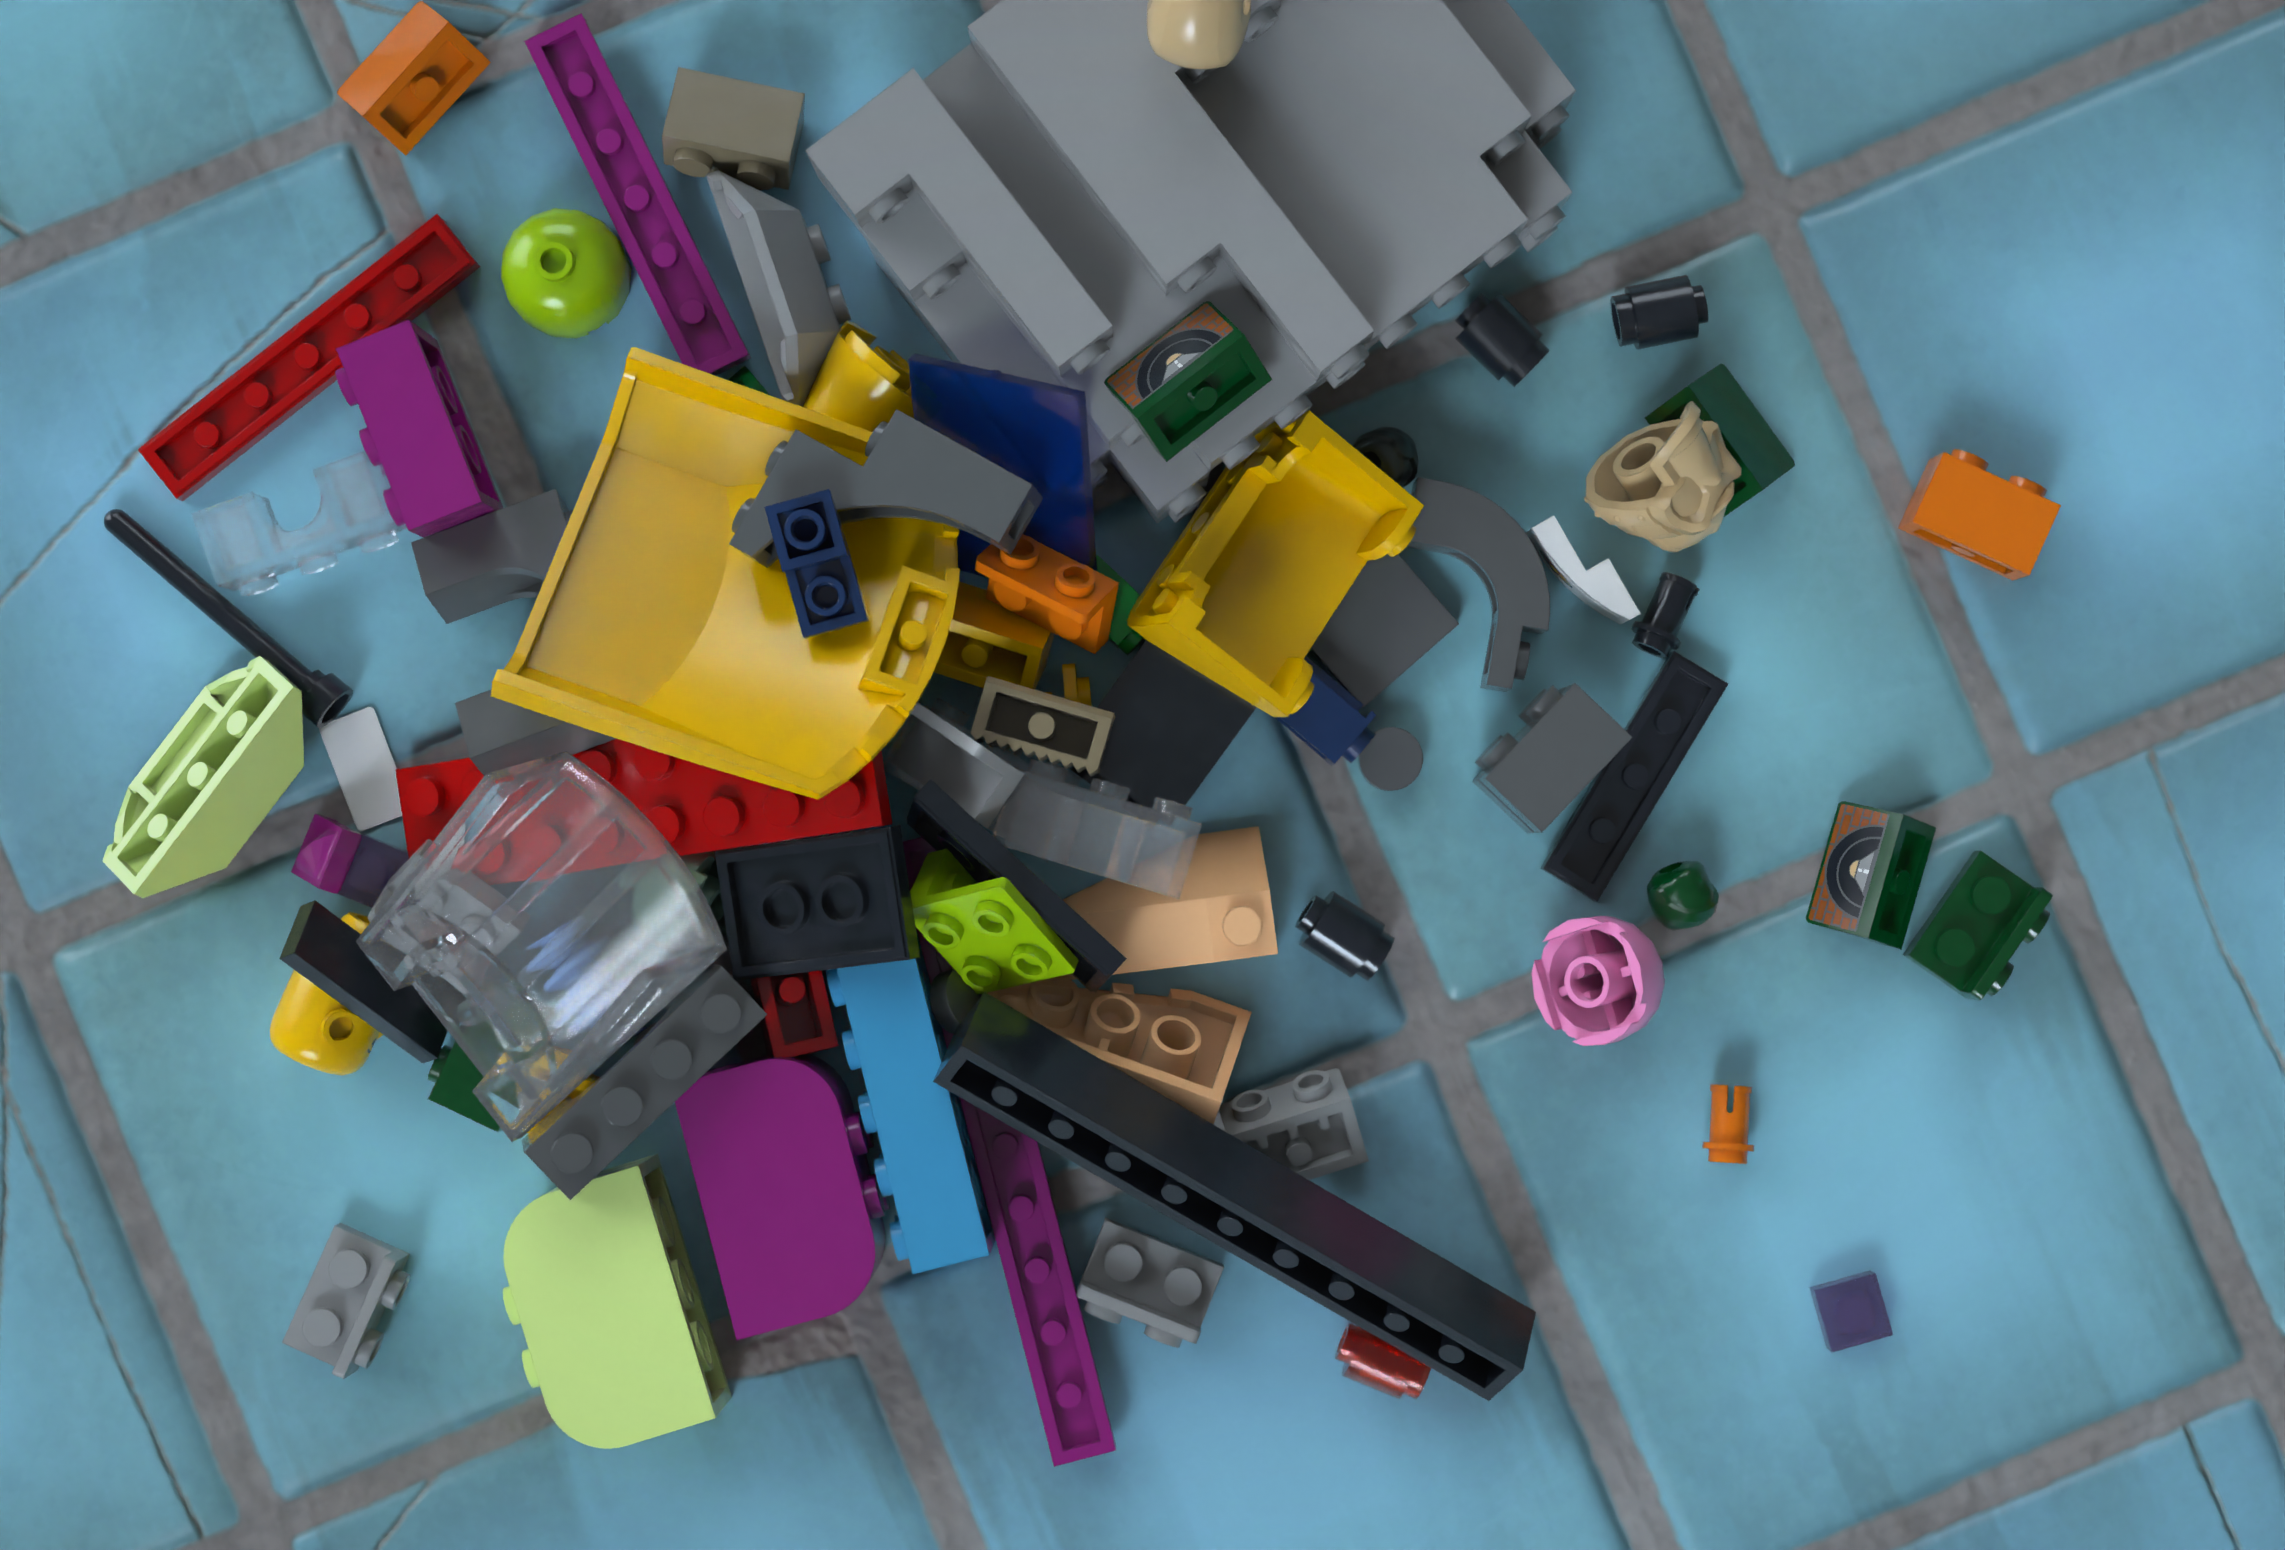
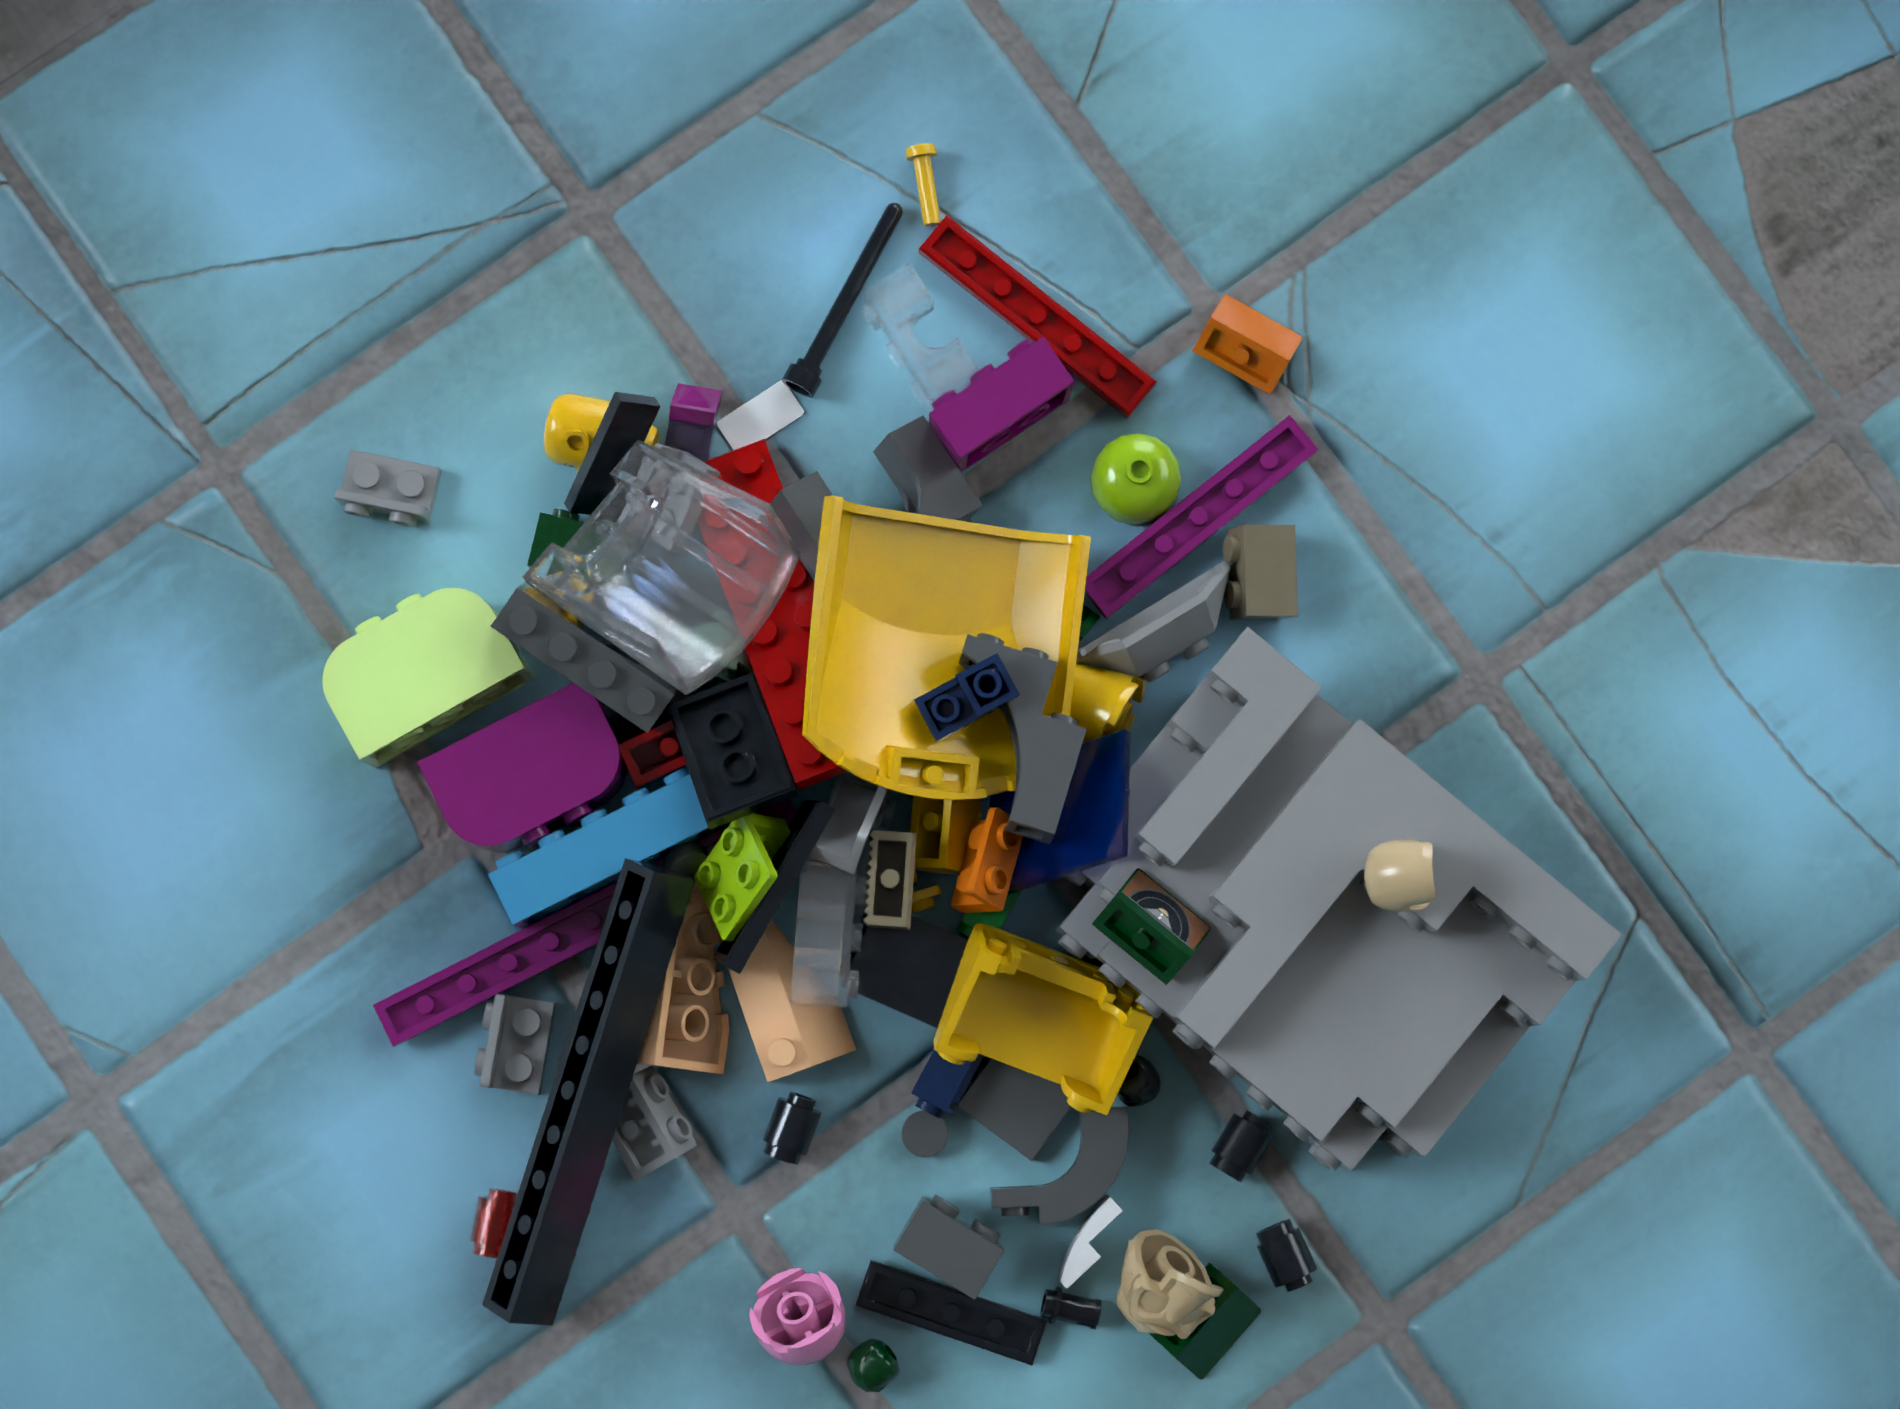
camera: 70 degrees right, 5 degrees down
(45, 466) = (921, 156): none -> yellow piece
(210, 781) = (728, 315): yellowish green wedge -> none

